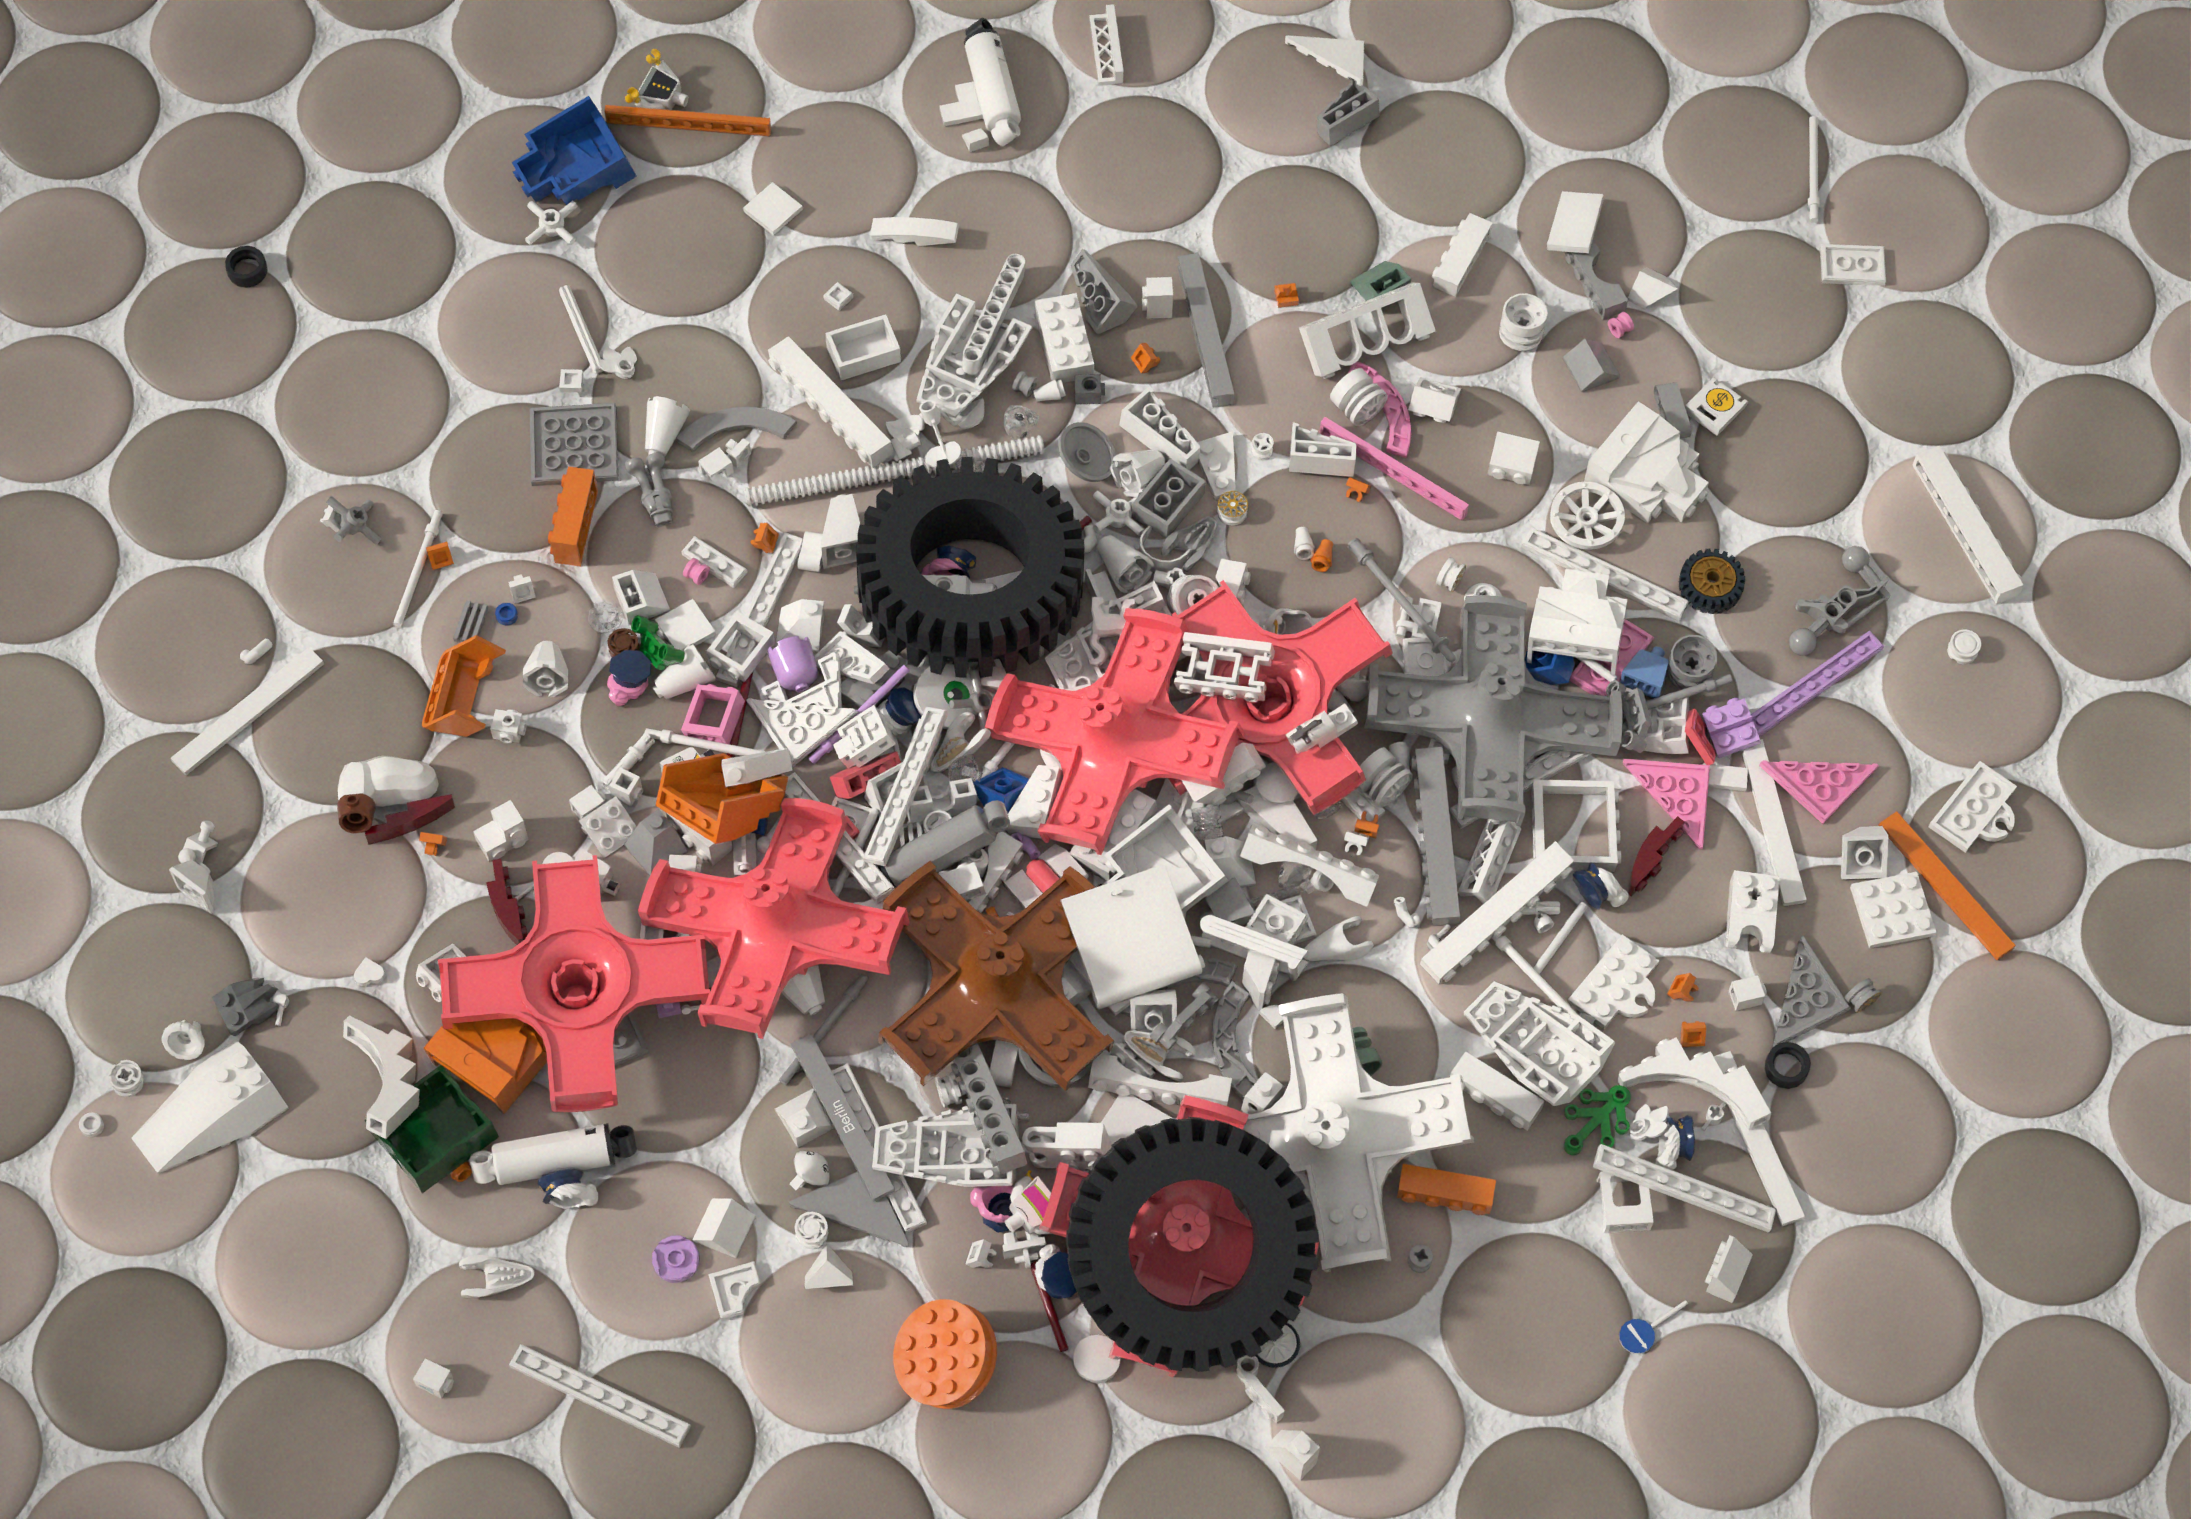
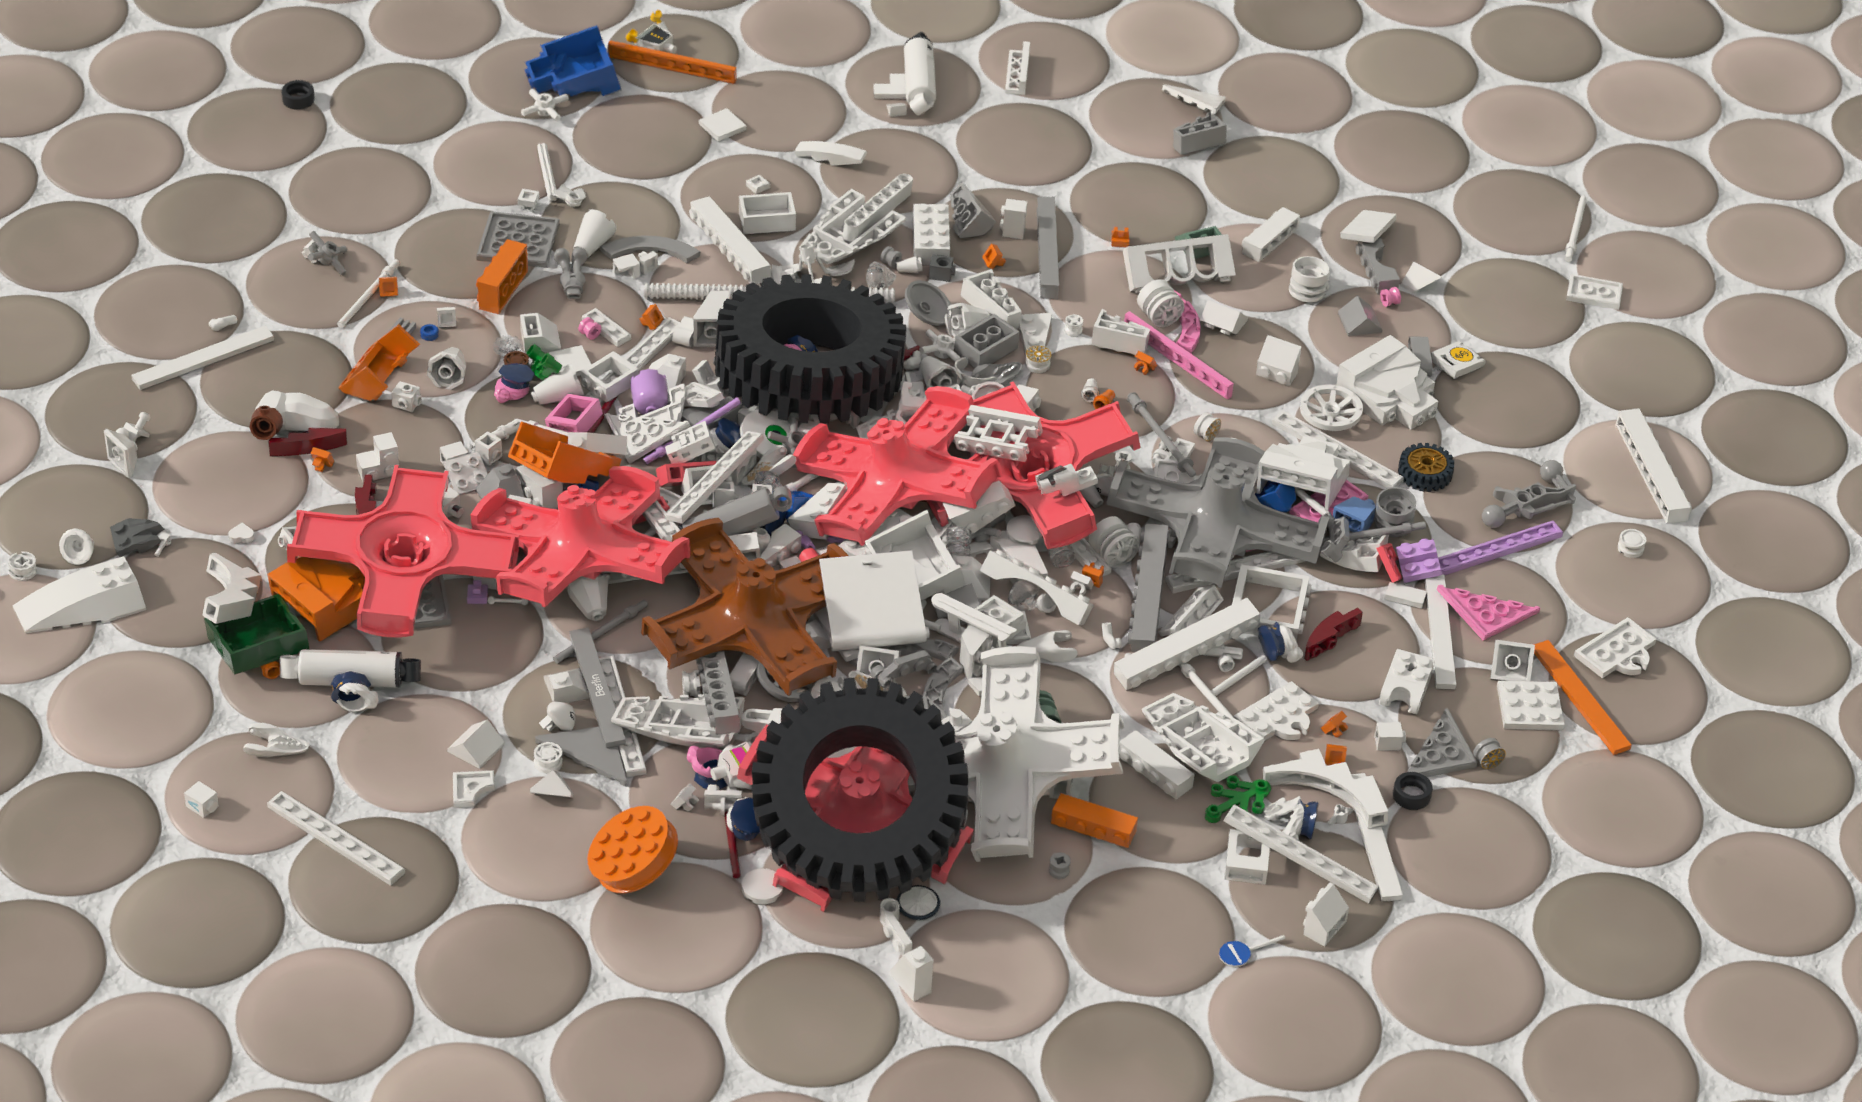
camera: 10 degrees right, 20 degrees down
(675, 1259) = (429, 759): lavender tile -> none
(1678, 789) = (1362, 592): bright pink tile -> none

